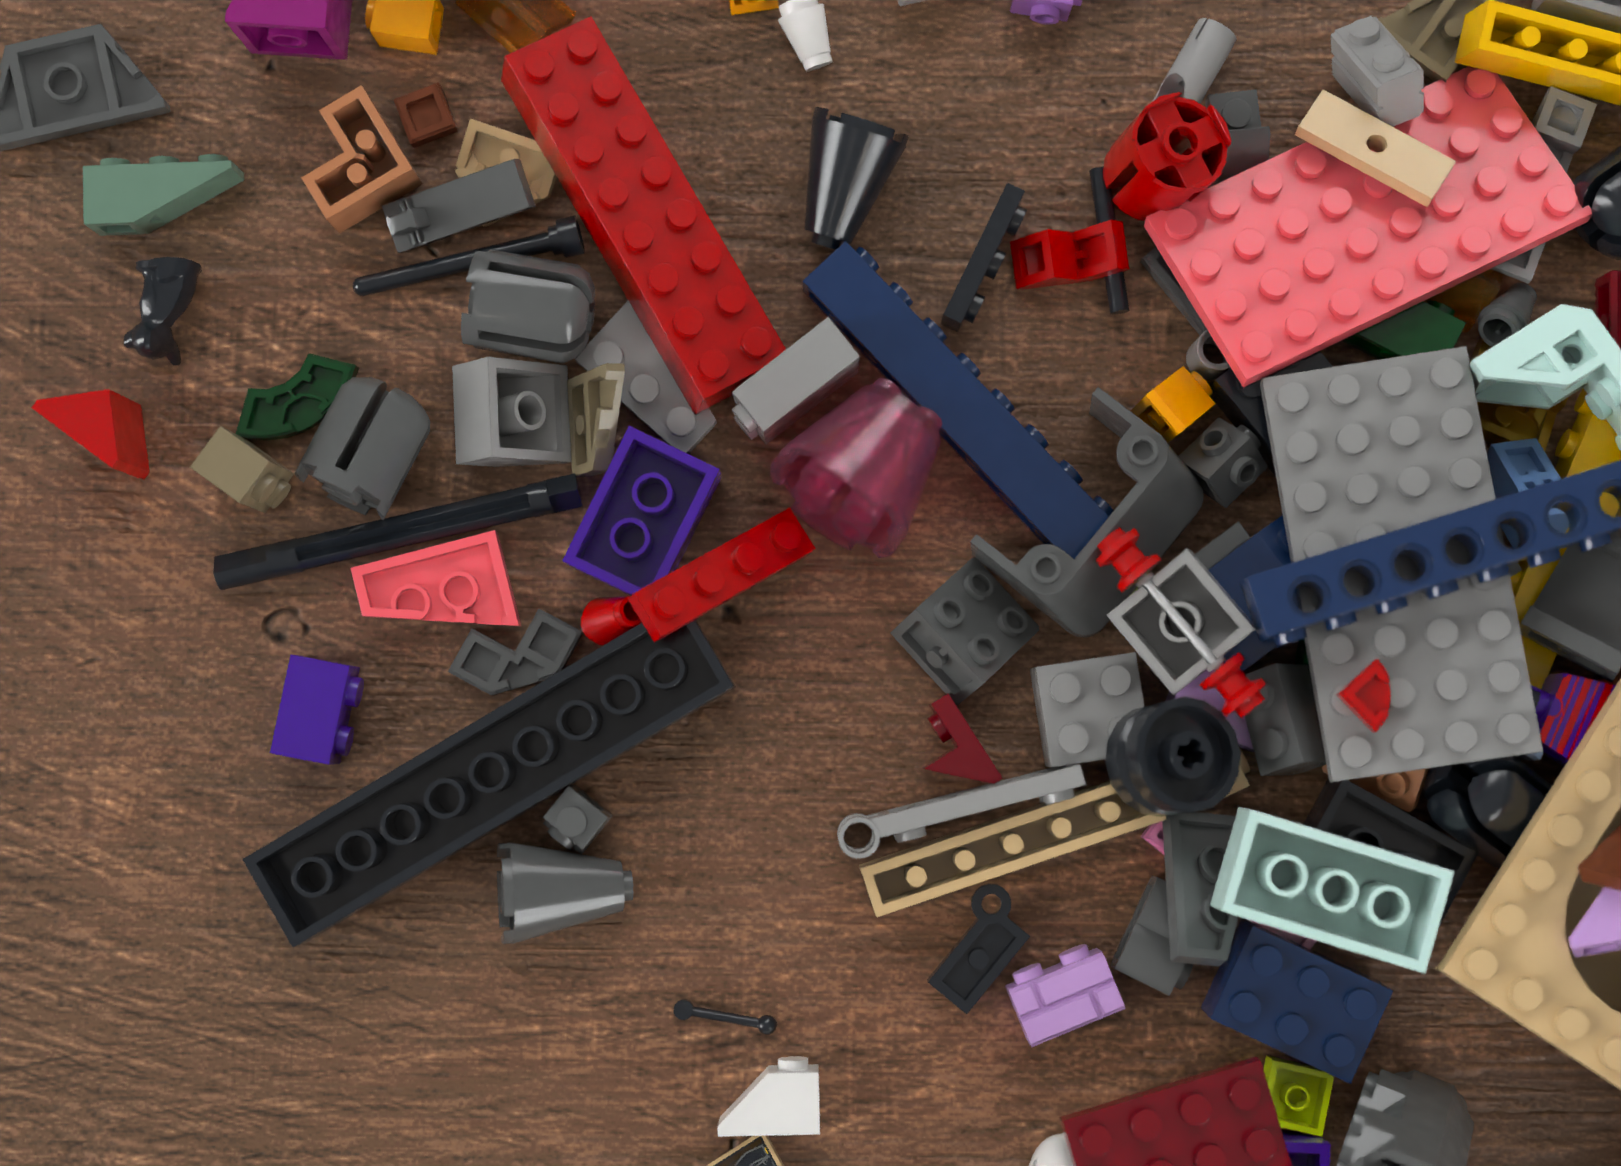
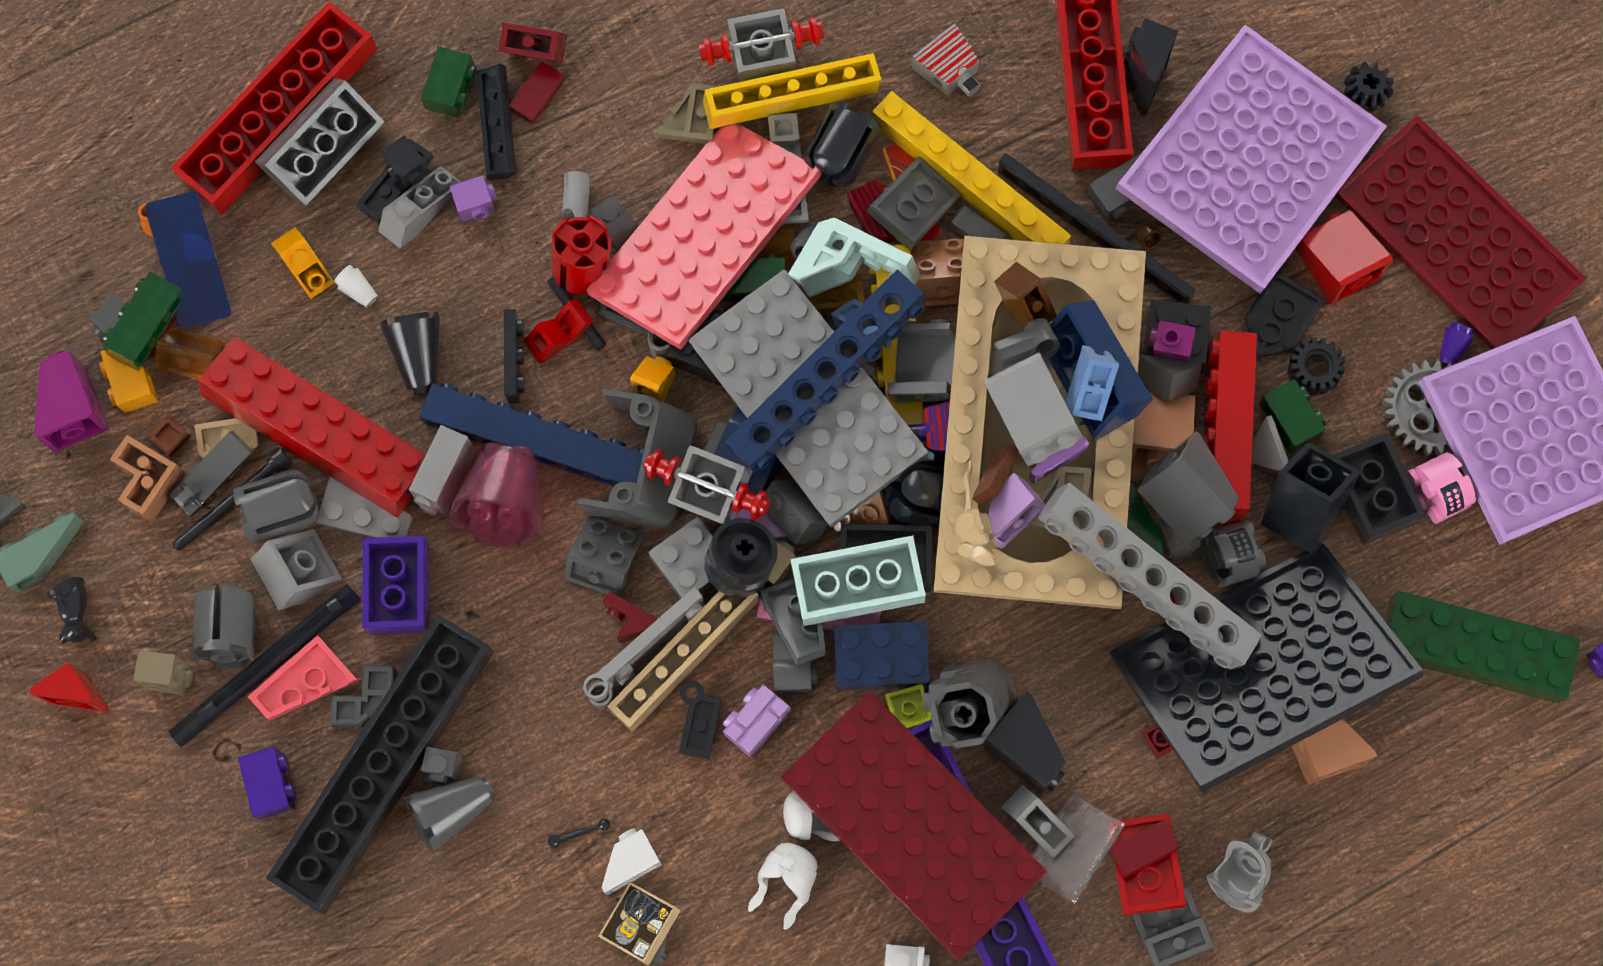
camera: 25 degrees left, 10 degrees down
(294, 404) = (174, 624): dark green tile -> none
(593, 417) = (342, 546): dark tan wing -> none
(608, 619) = (404, 646): red cone -> none
(721, 574) = (453, 591): red plate -> none
(1224, 460) = (695, 394): dark grey brick -> none
(1369, 695) = (822, 469): red tile -> none
(1377, 71) = (670, 155): light grey brick -> none
(1397, 158) = (687, 193): tan tile -> none
(1558, 923) = (975, 530): none -> tan animal

